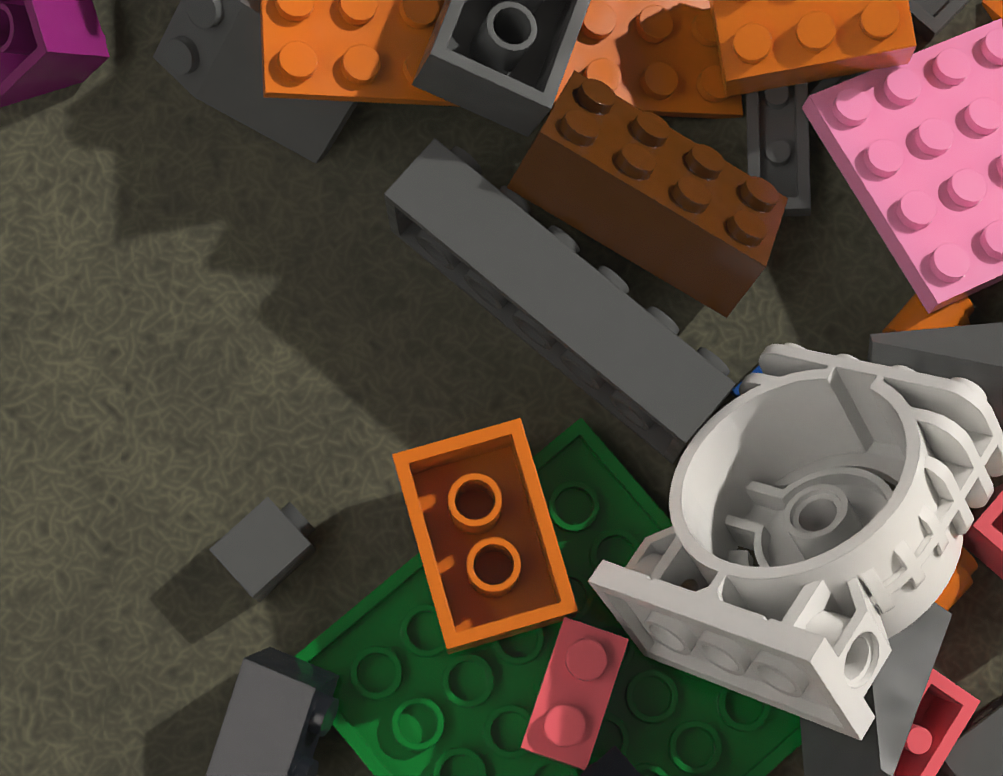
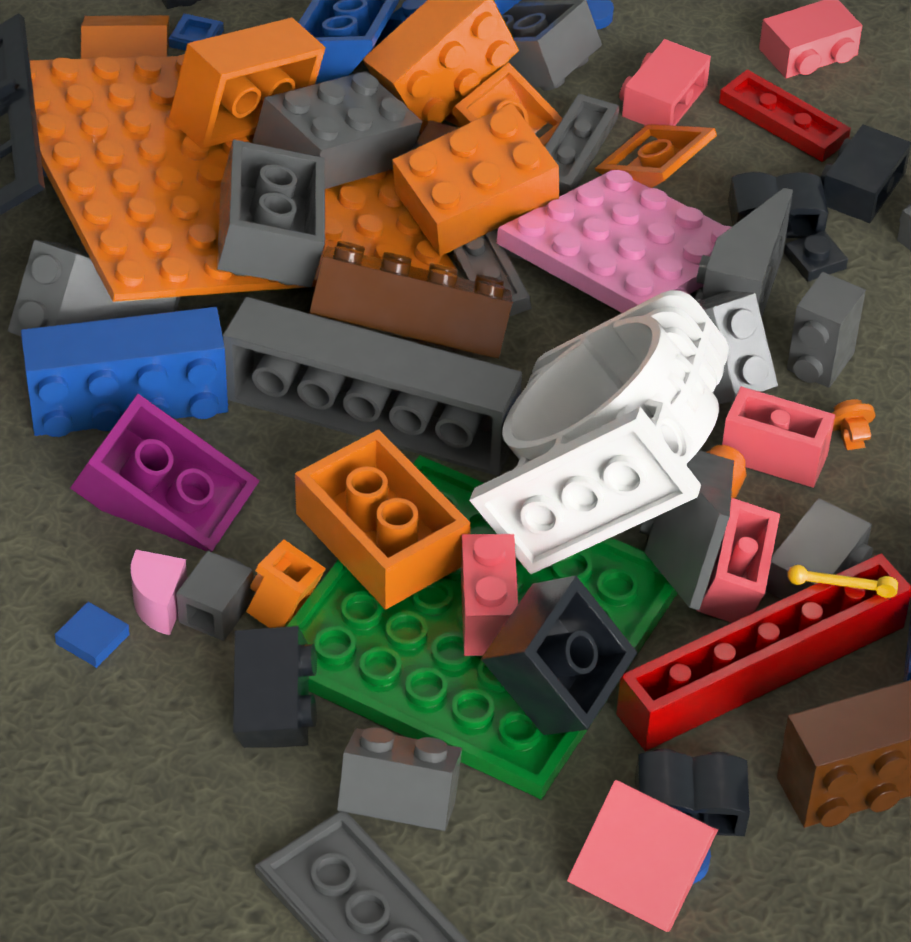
camera: 20 degrees left, 30 degrees down
(110, 544) = (92, 634): none -> blue tile
(198, 516) = (155, 586): none -> bright pink brick
(261, 178) = (94, 369): none -> blue brick
(267, 348) = (165, 478): none -> magenta slope
(341, 577) = (283, 585): none -> orange brick

